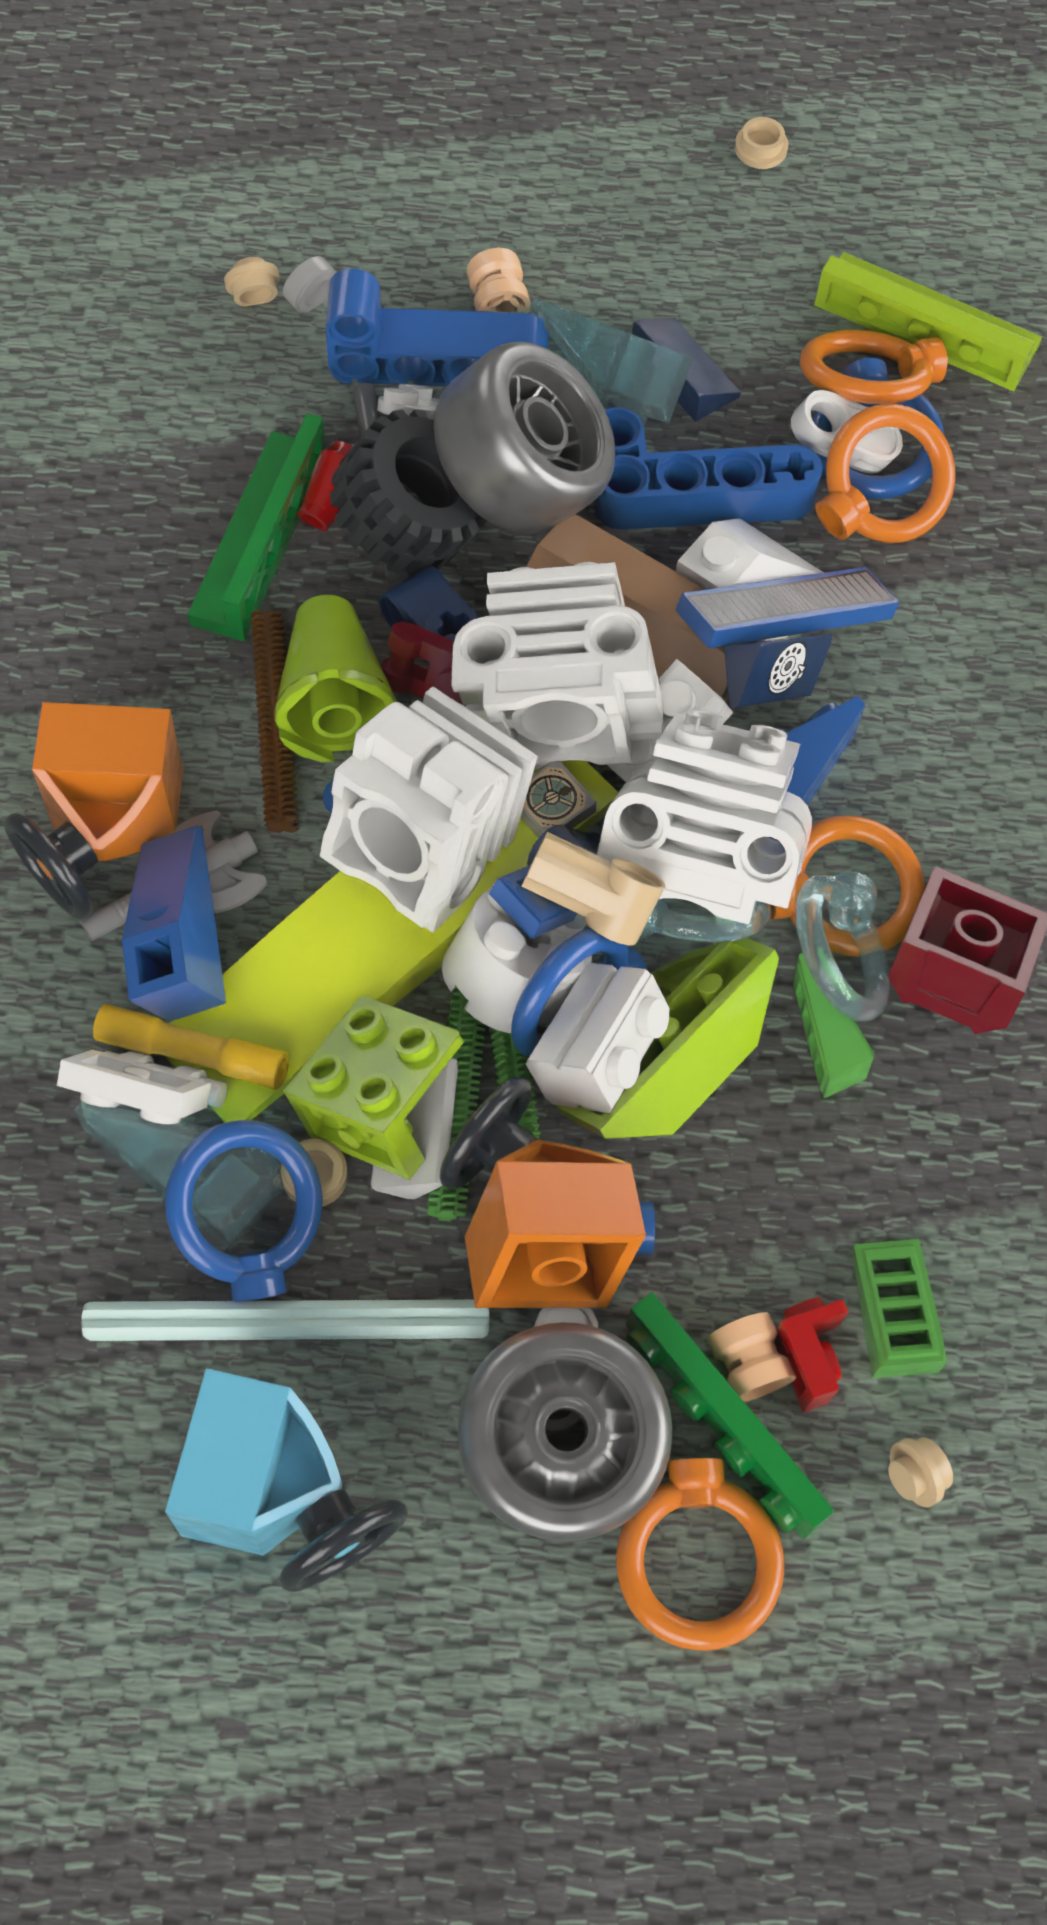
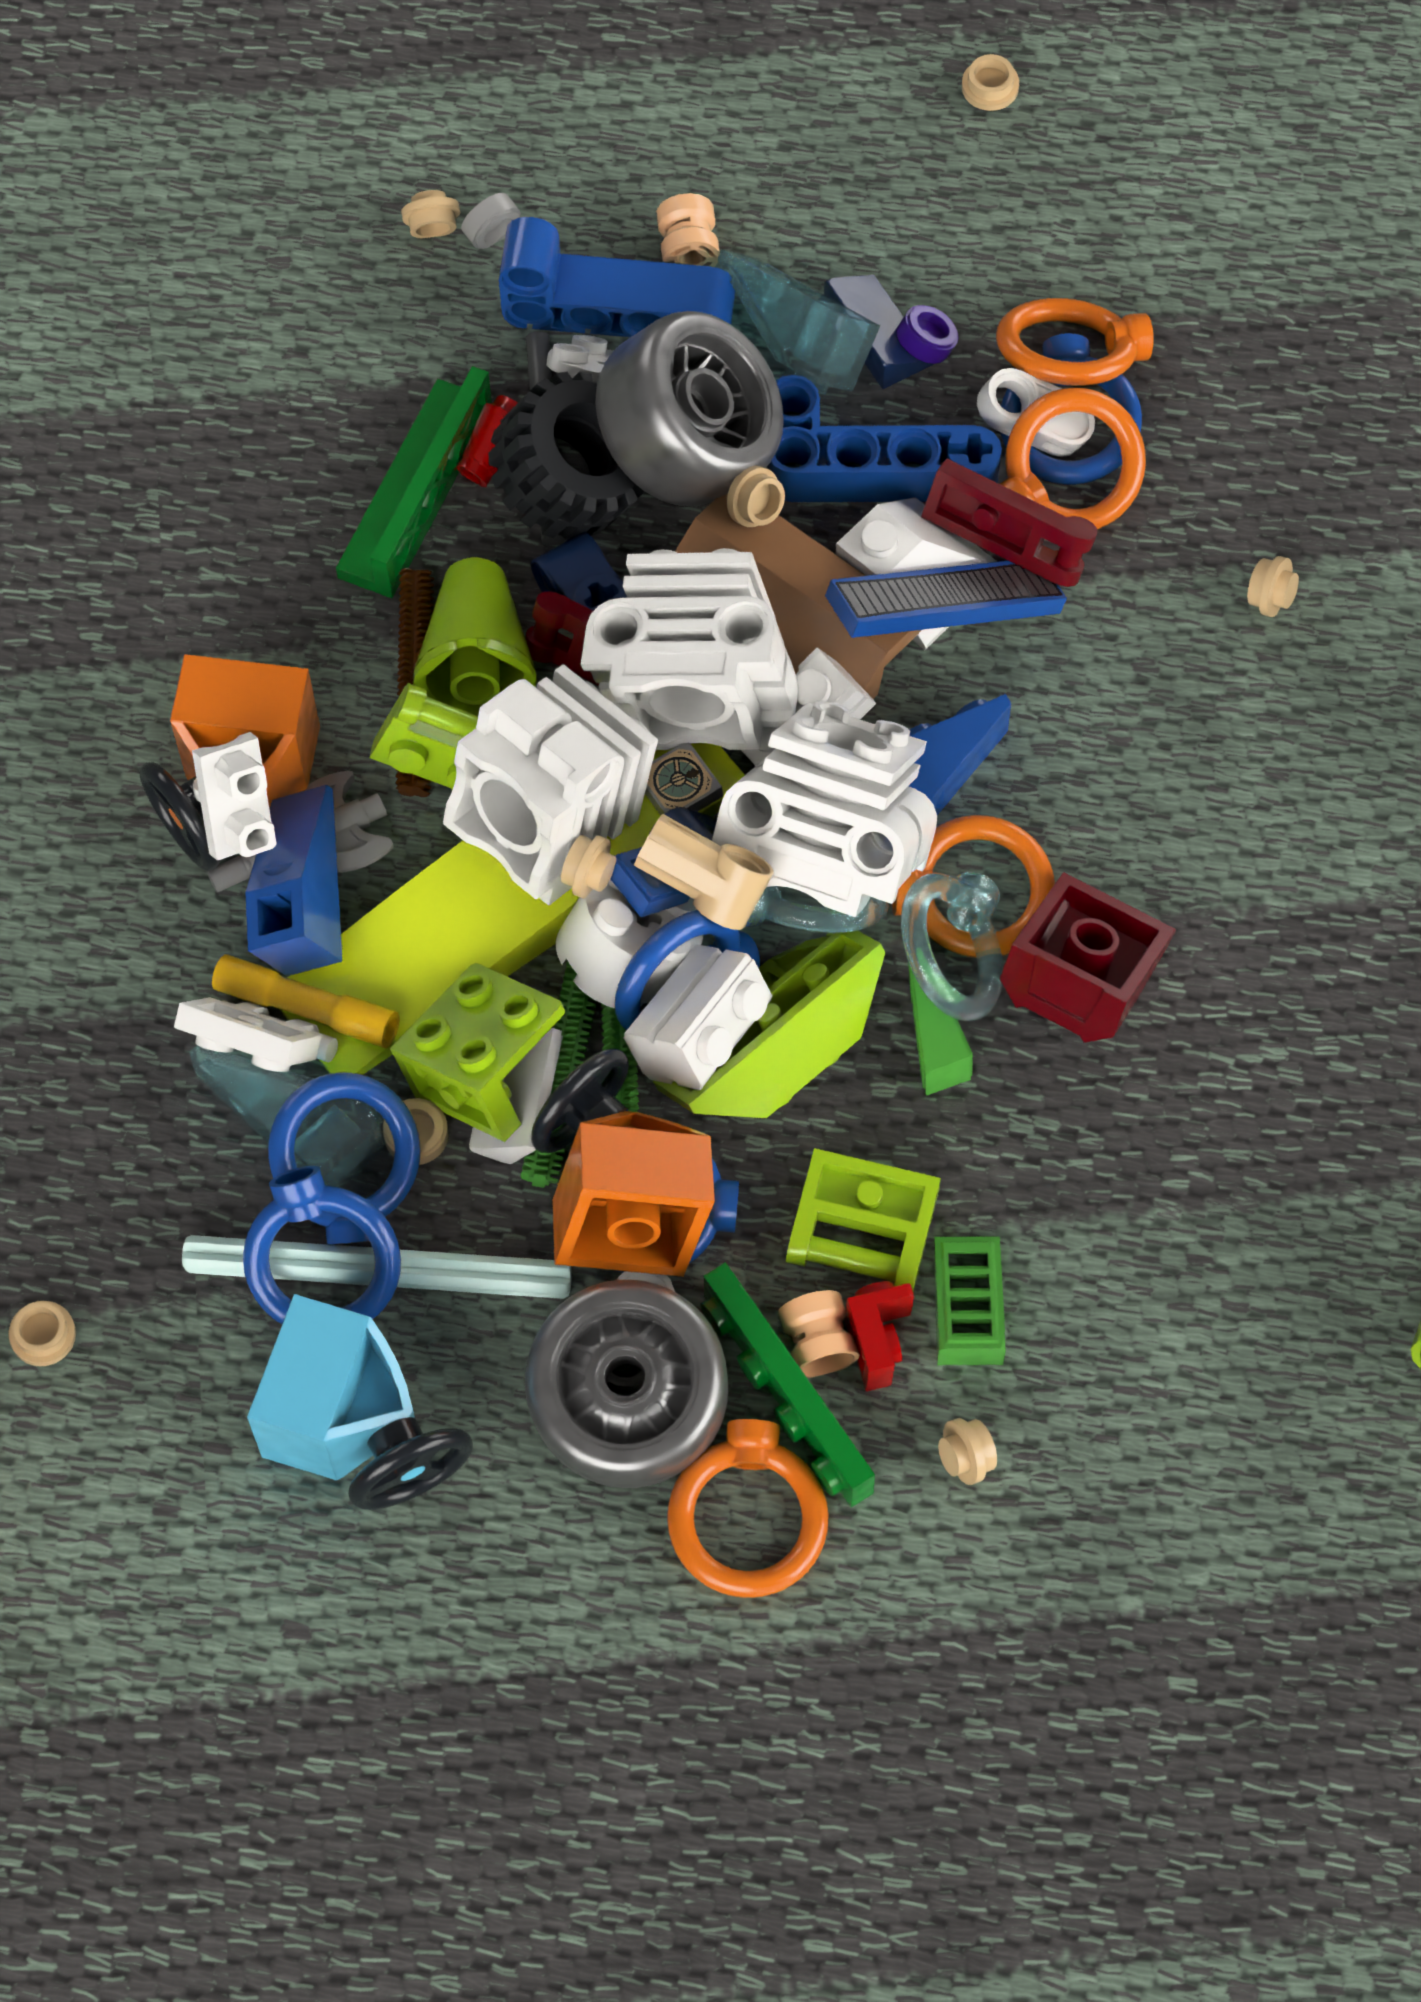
camera: 10 degrees right, 0 degrees up
(103, 843) = (234, 798): none -> white hips
(202, 1258) = (302, 1196): none -> blue piece
(293, 771) = (422, 736): none -> lime plate
(475, 889) = (588, 865): none -> tan plate
(597, 520) = (755, 497): none -> tan plate
(733, 367) = (927, 334): none -> dark purple tile
(774, 669) = (924, 661): dark blue slope -> none
(786, 1212) = (869, 1200): none -> lime plate
(838, 534) = (1009, 524): none -> dark red plate
(914, 312) = (1182, 315): lime fence -> none

